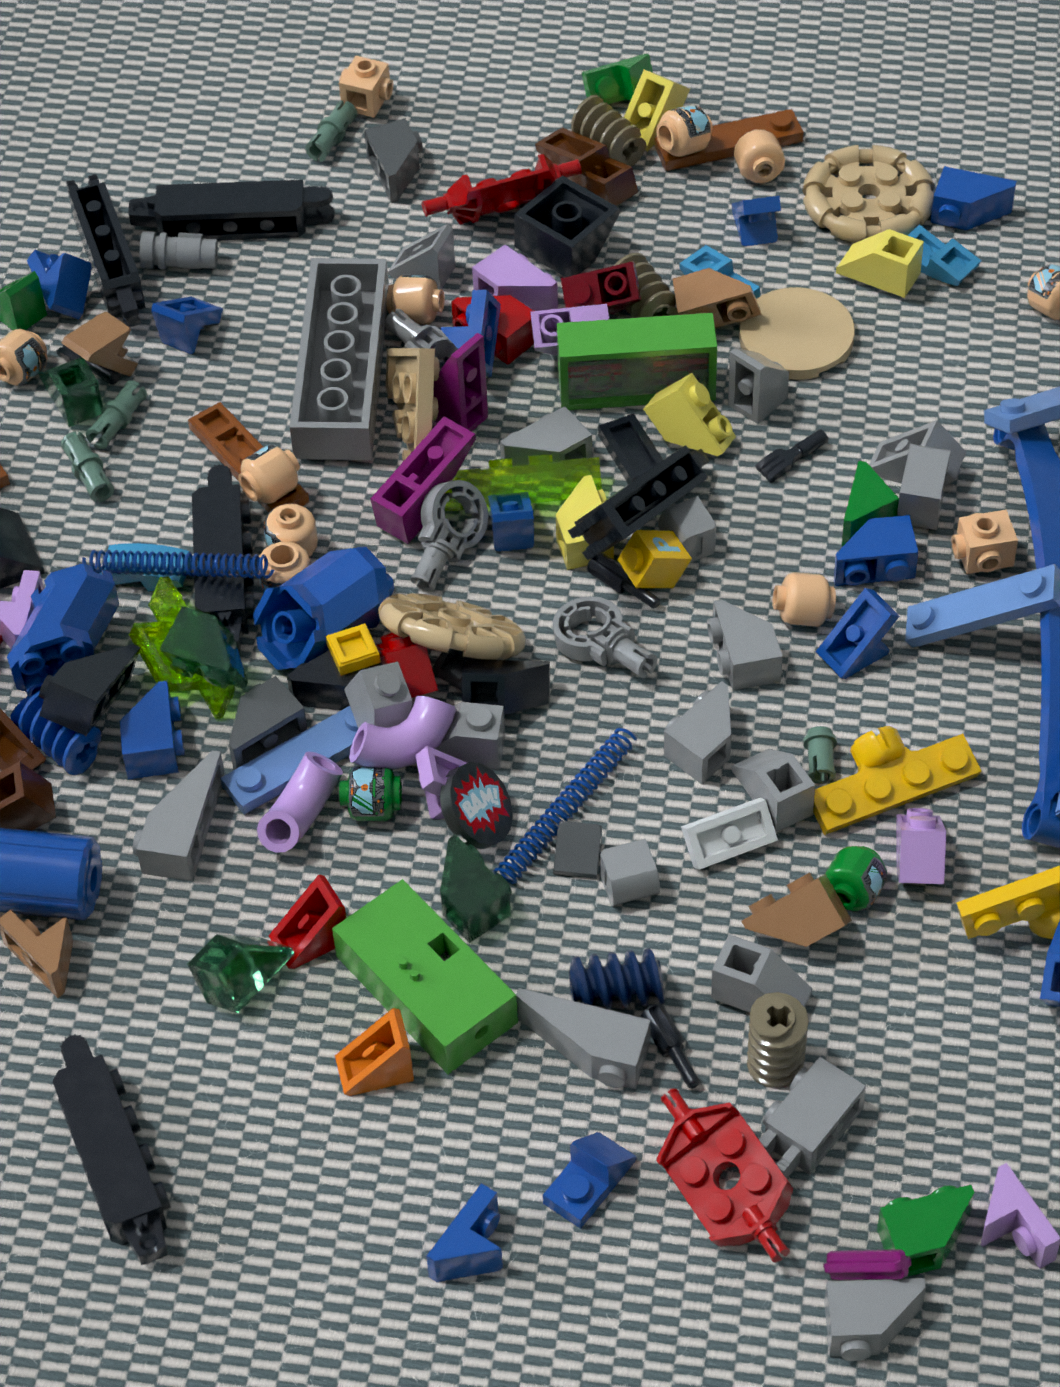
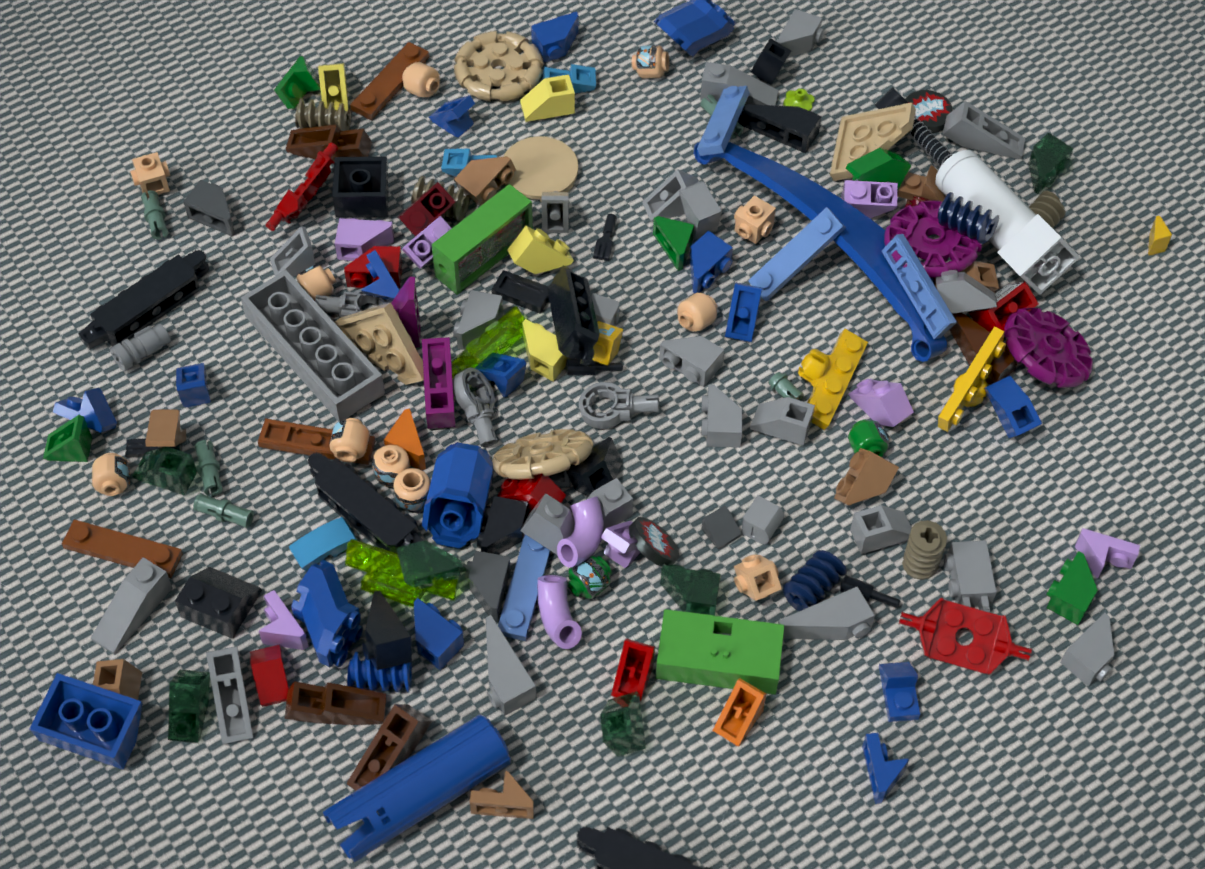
camera: 45 degrees left, 5 degrees up
(107, 249) = (96, 370): black hinge -> none
(178, 564) = (341, 540): blue piece -> none
(339, 515) = (406, 436): none -> orange slope
(353, 649) = (504, 505): yellow tile -> none
(541, 937) = (757, 577): none -> light nougat brick
(559, 811) = (690, 509): blue piece -> none
(684, 130) = (372, 89): light nougat head -> none
(729, 833) = (786, 462): white plate -> none
(867, 1264) = (1071, 627): magenta axle -> none

